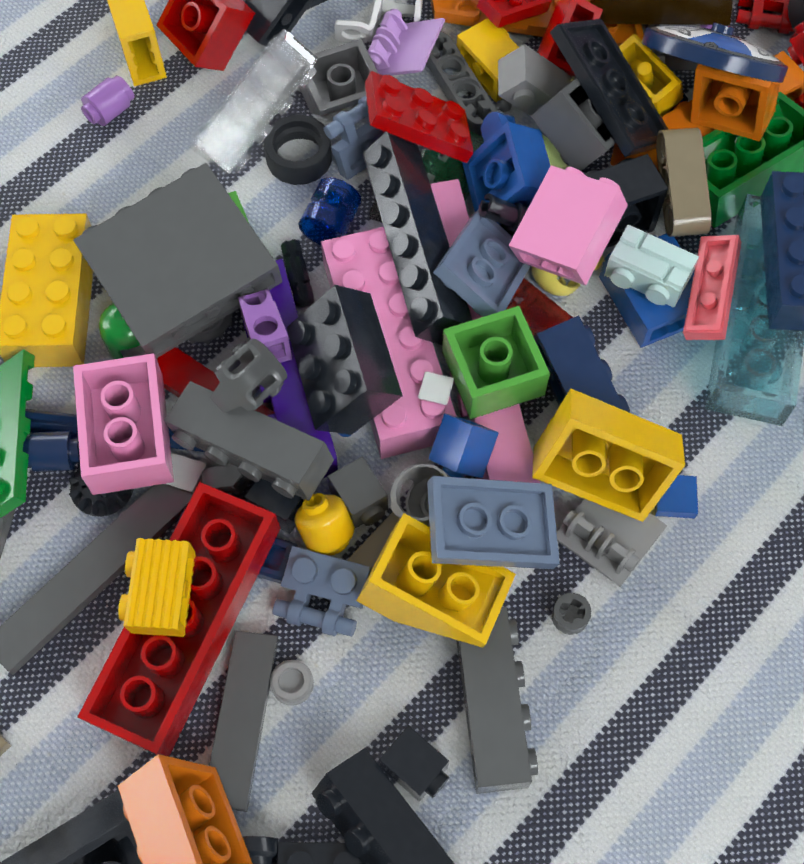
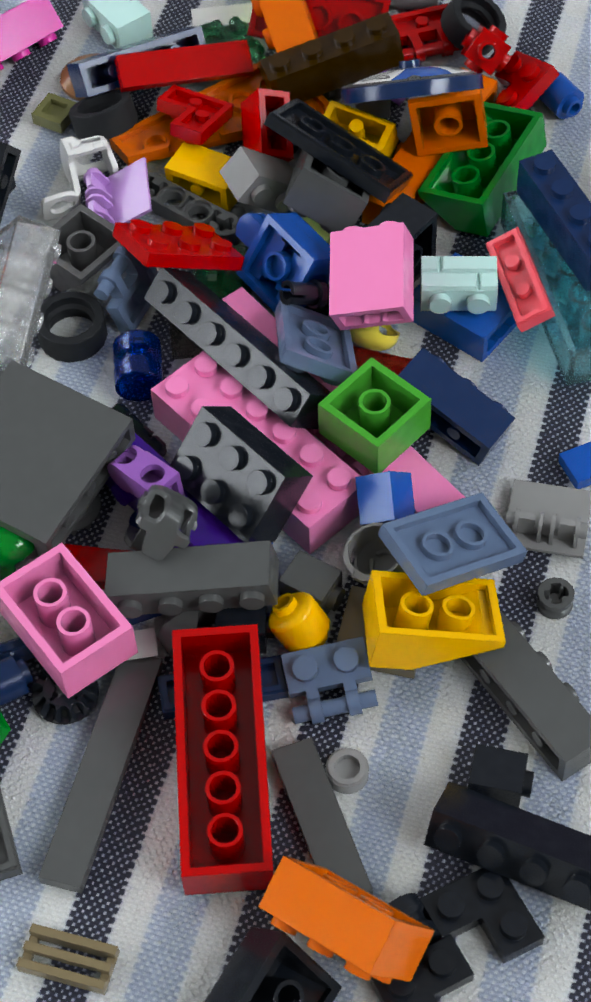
camera: 25 degrees left, 10 degrees down
(158, 587) = (195, 727): yellow brick -> none
(436, 388) = (333, 461): white sticker -> none
(608, 455) = (514, 448): yellow brick -> none
(684, 172) = (458, 218): dark tan beam -> none

